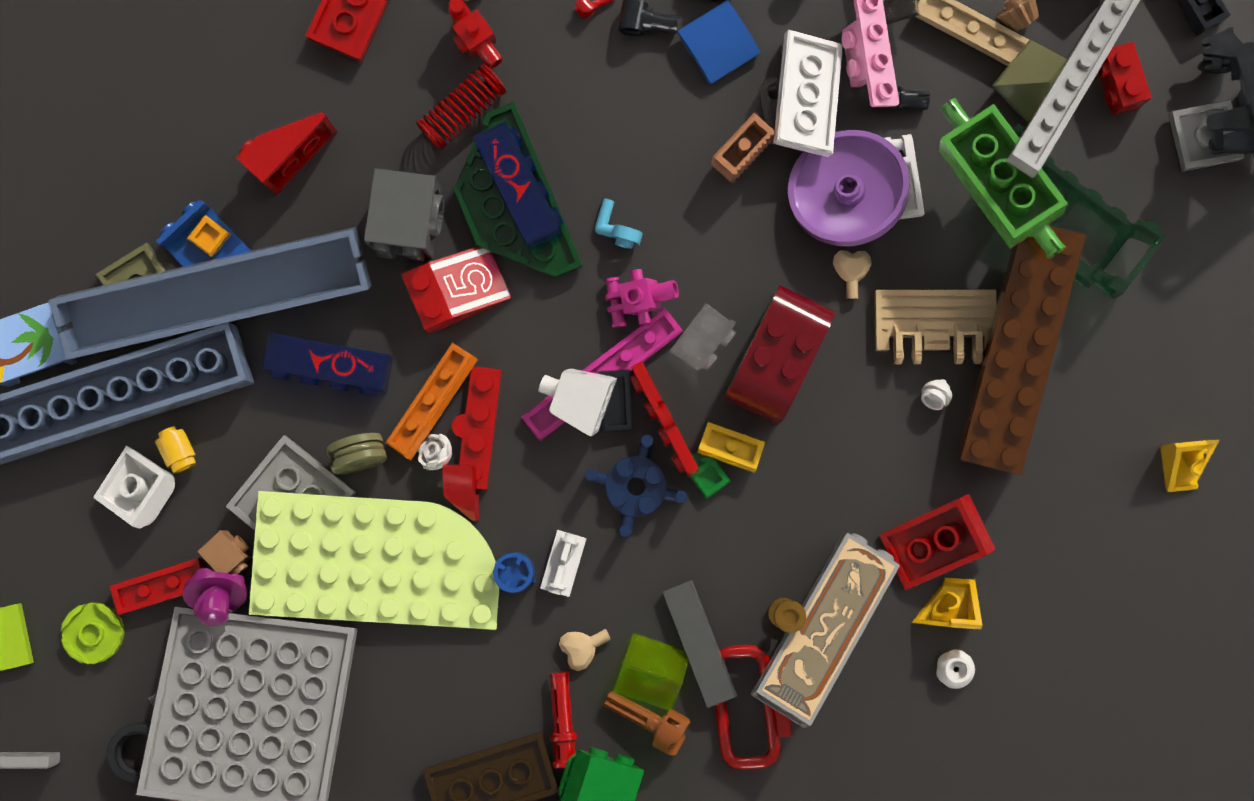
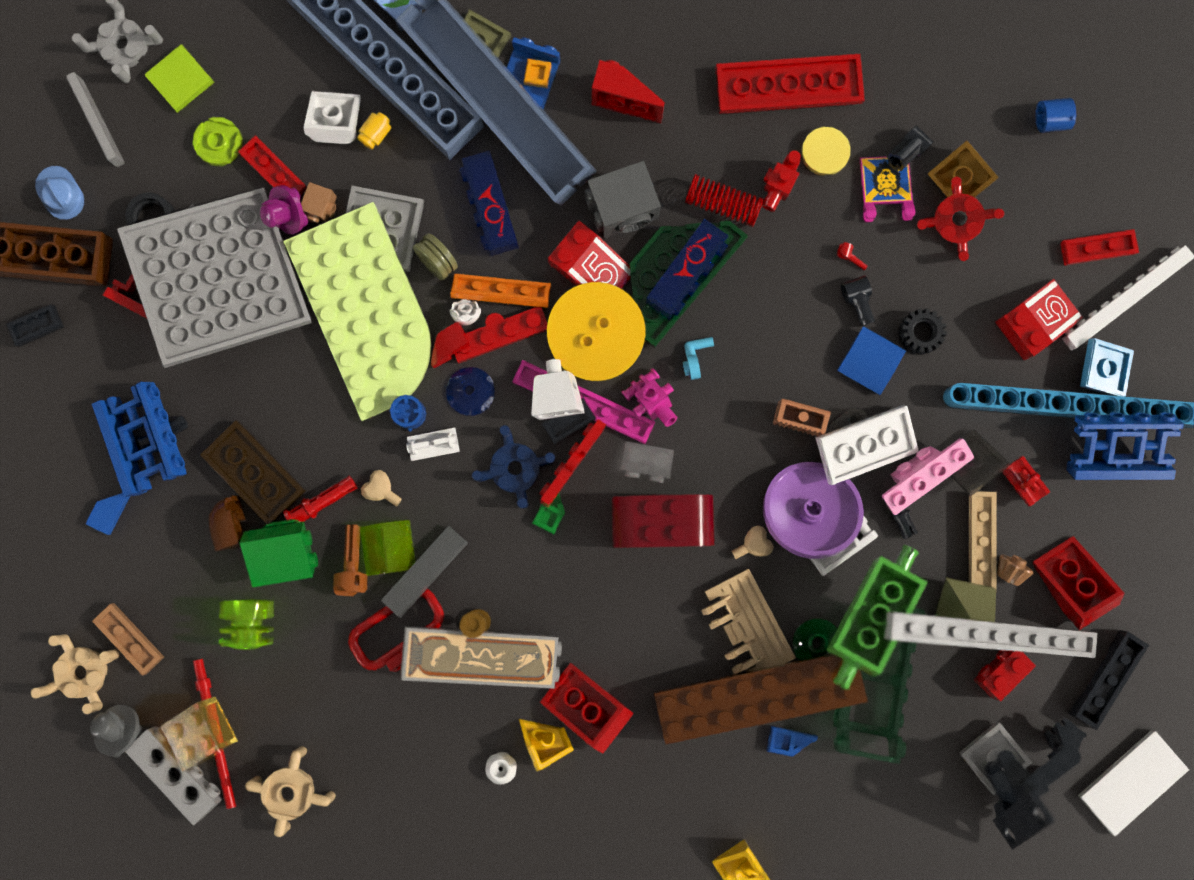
camera: 60 degrees right, 0 degrees up
(532, 319) = (596, 331): none -> yellow plate
(541, 492) = (479, 400): none -> clear blue dish
(731, 447) = (578, 521): yellow plate -> none
(936, 394) = (694, 652): white plate -> none
(974, 258) = (809, 630): none -> dark green dish
(1080, 344) = (788, 741): none -> blue tile

